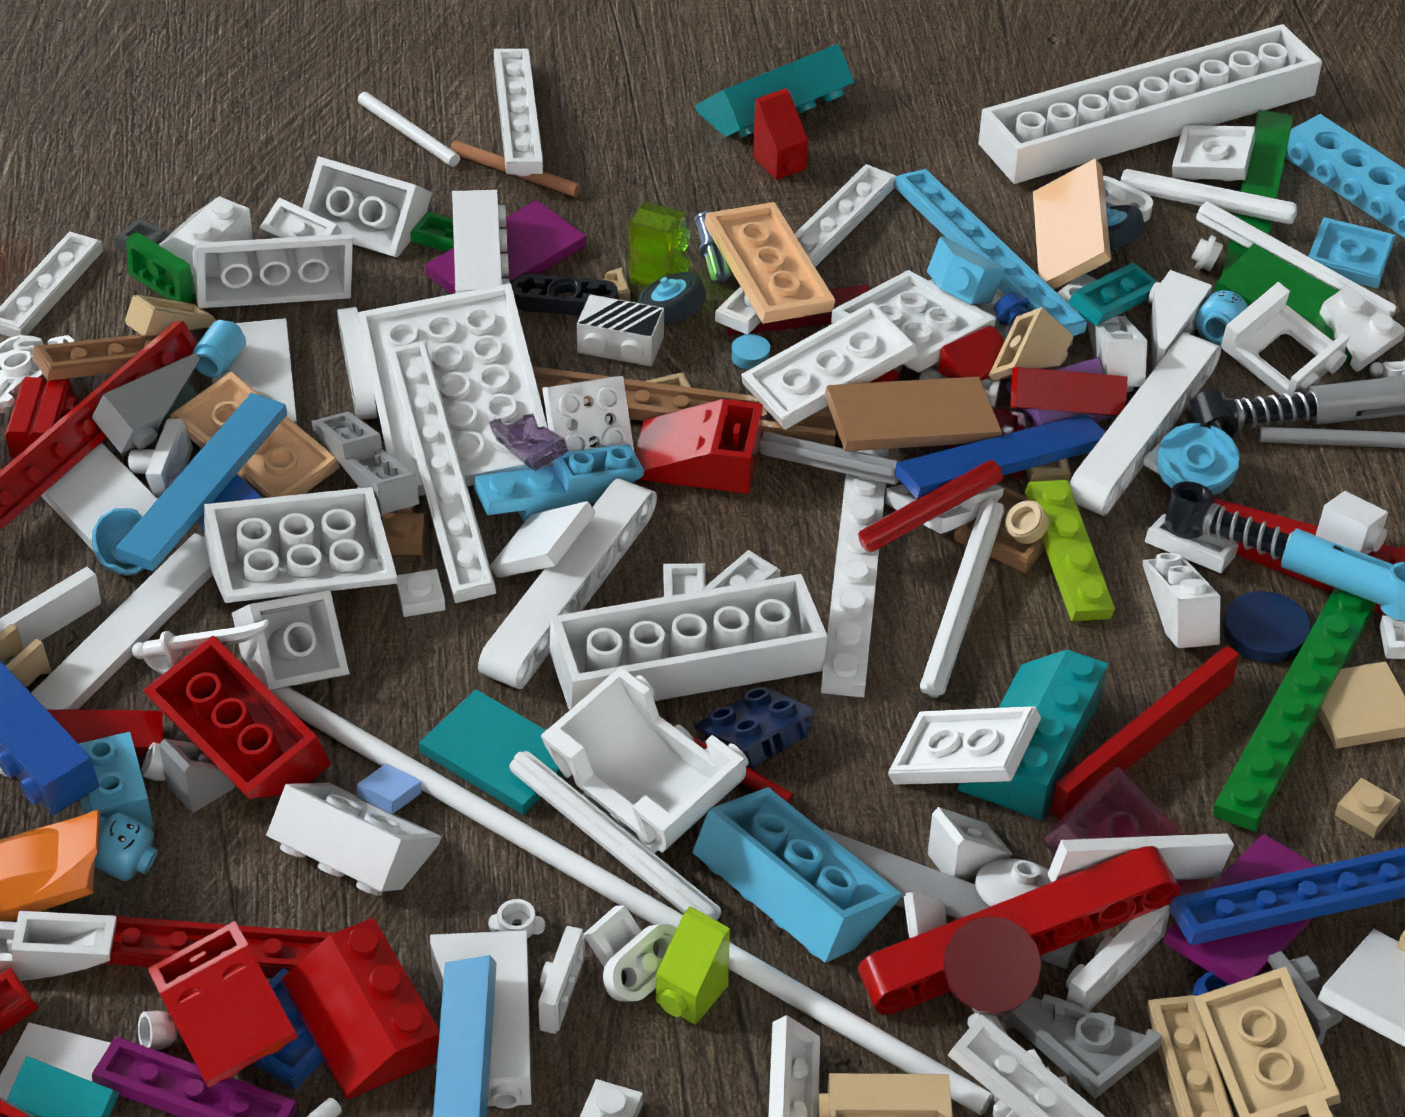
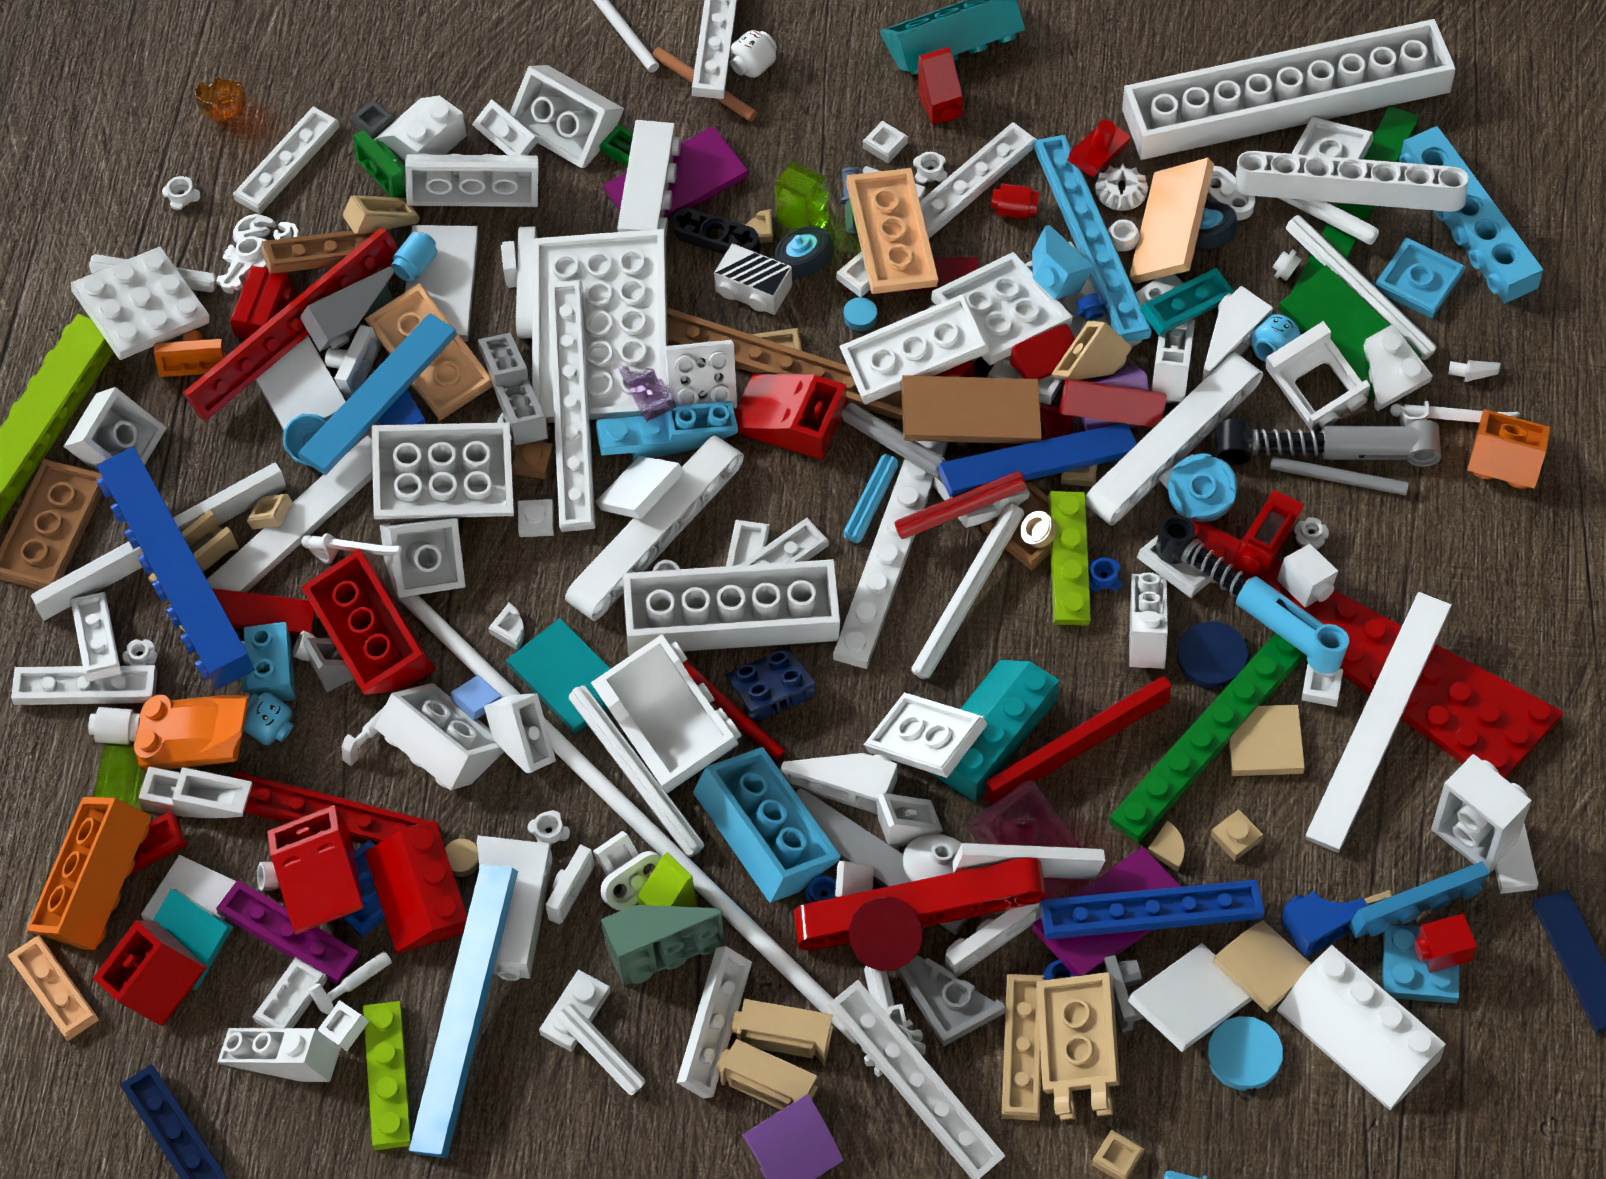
camera: 15 degrees right, 15 degrees up
(86, 623) = (269, 511): none -> tan tile
(241, 857) = (351, 745): none -> white piece
(333, 348) = (509, 263): none -> white tile
(412, 710) = (508, 627): none -> white tile
(418, 967) = (462, 857): none -> tan tile
(457, 812) = (521, 730): none -> white slope
(564, 132) = (753, 53): none -> white head
(697, 1018) = (659, 937): none -> sand green slope
(730, 195) = (885, 142): none -> white tile
(792, 210) = (927, 161): none -> white plate
(817, 523) = (871, 498): none -> medium azure axle
(878, 811) = (844, 778): none -> white slope
(885, 933) = (818, 885): none -> blue plate
(893, 230) = (1015, 201): none -> red brick
(968, 172) = (1099, 148): none -> red tile
(989, 211) = (1134, 192): none -> white gear
(1023, 246) = (1124, 235): none -> white plate
(1115, 562) = (1104, 566): none -> blue plate
(1254, 163) = (1352, 181): none -> white beam
(1290, 491) = (1268, 535): none -> red window
(1294, 831) = (1168, 847): none -> tan tile
(1327, 490) = (1304, 538): none -> white plate

